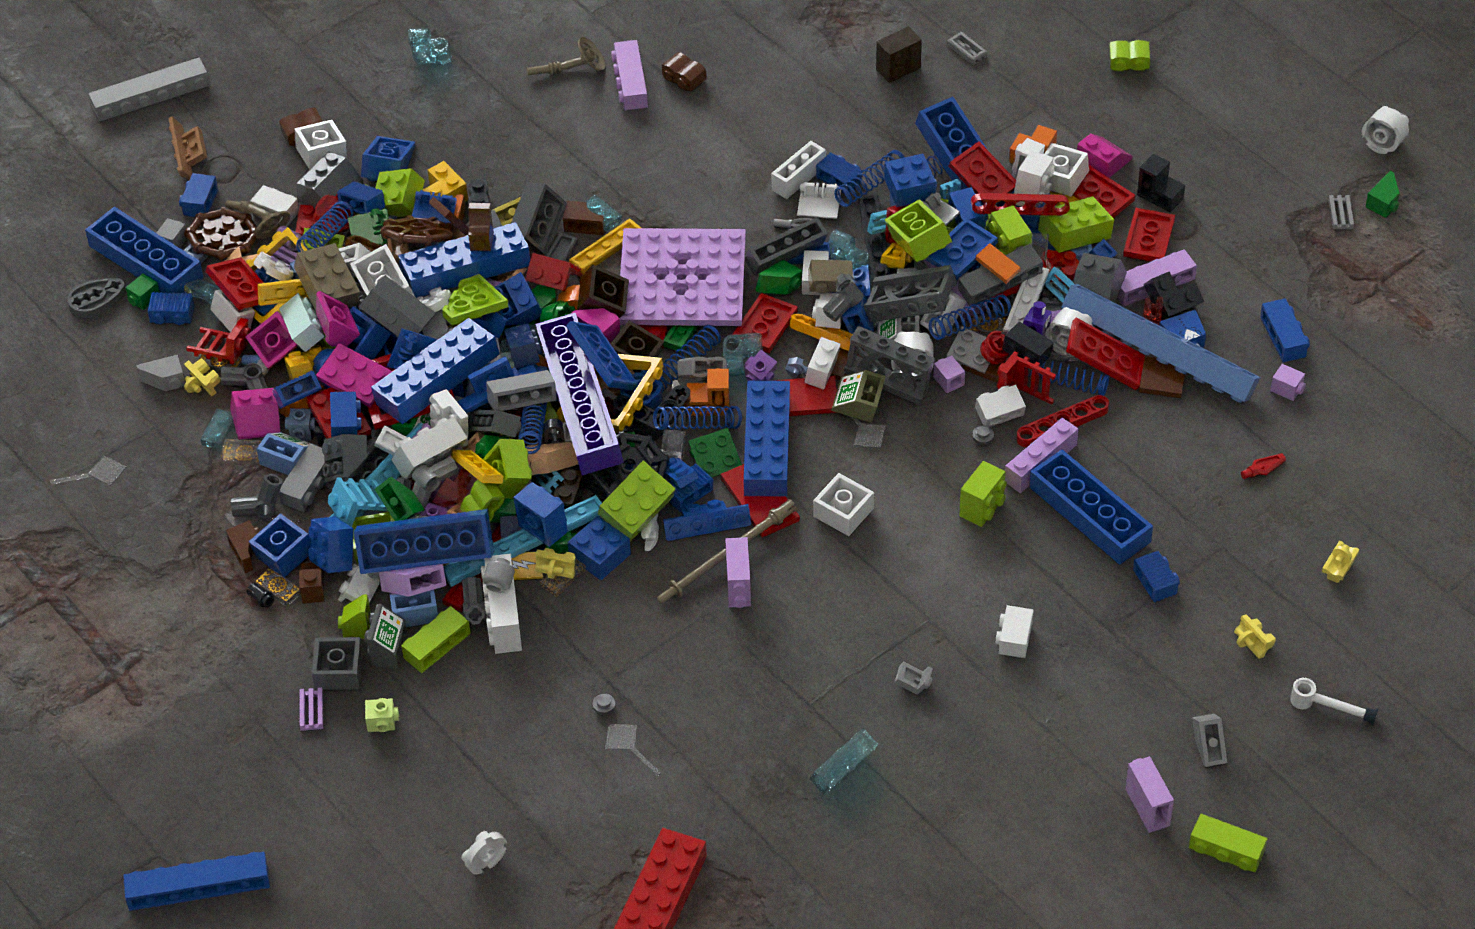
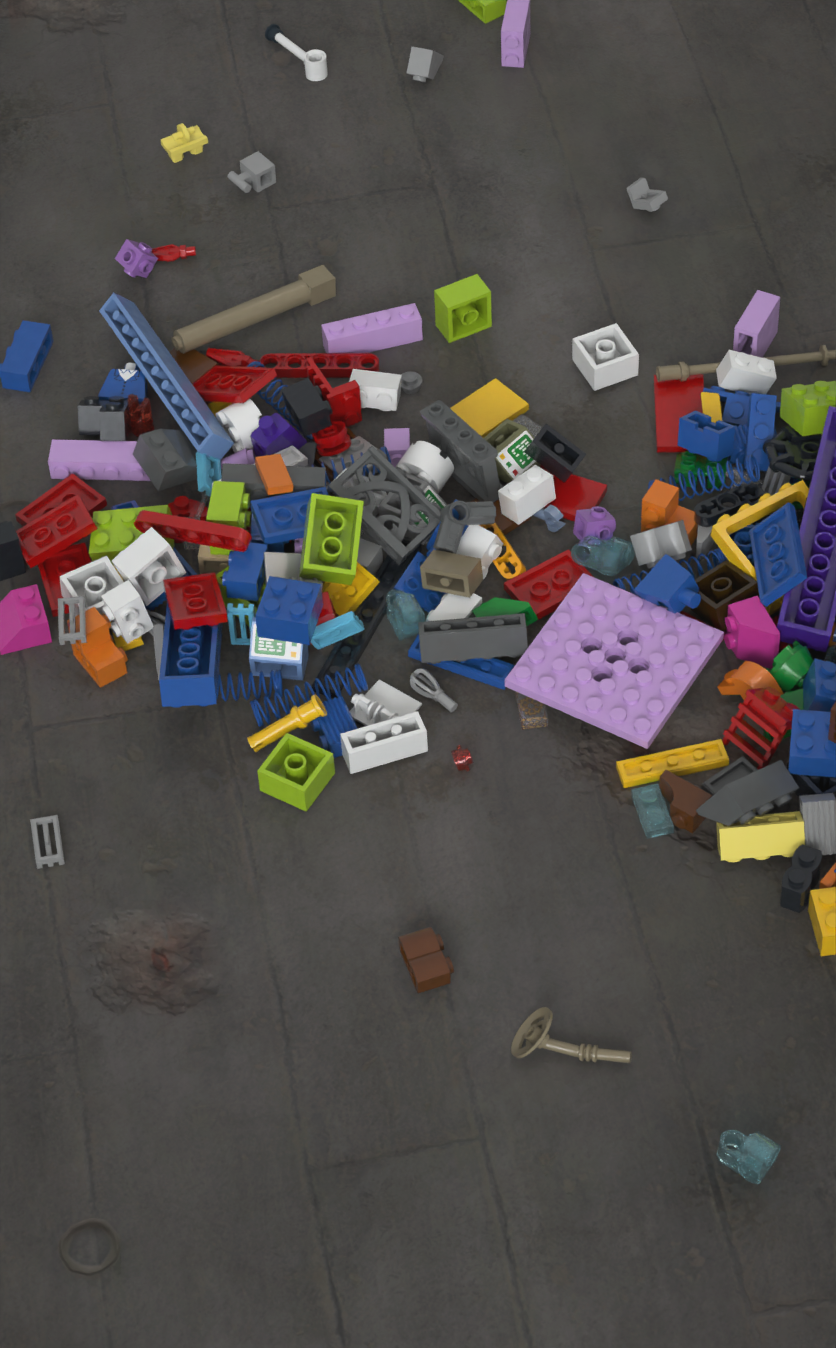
camera: 150 degrees left, 0 degrees up
(603, 290) = (728, 647): dark brown brick -> none
(630, 75) = (496, 987): lavender brick -> none
(670, 325) = (669, 586): none -> blue torso
(718, 455) = (706, 437): none -> blue brick
(724, 525) = (746, 373): none -> white brick
(729, 488) = (711, 405): none -> yellow slope
(744, 188) = (462, 758): none -> clear red plate
(767, 438) = (637, 445): blue brick -> none
(820, 392) = (555, 453): none -> black brick
(841, 131) = (296, 772): none -> lime brick
(843, 761) = (761, 150): clear light blue brick -> none
(864, 154) = (297, 717): none -> yellow pin
(898, 54) = (147, 840): dark brown brick -> none
(908, 436) = (490, 407): none -> yellow tile
(1015, 631) = (525, 193): white brick -> none
(1048, 129) = (73, 635): none -> light grey tile
(1091, 506) = (366, 259): blue brick -> none
(1122, 470) = (312, 287): none -> dark tan brick
(1128, 198) = (55, 531): none -> red plate
(1133, 399) = (229, 357): none -> red piece
(1156, 576) = (356, 196): blue brick -> none
(1252, 636) = (316, 119): light yellow hips -> none
(1258, 560) = (256, 173): none -> light grey brick
(1283, 437) = (141, 258): none -> medium lavender brick
(1288, 382) = (73, 307): lavender brick -> none

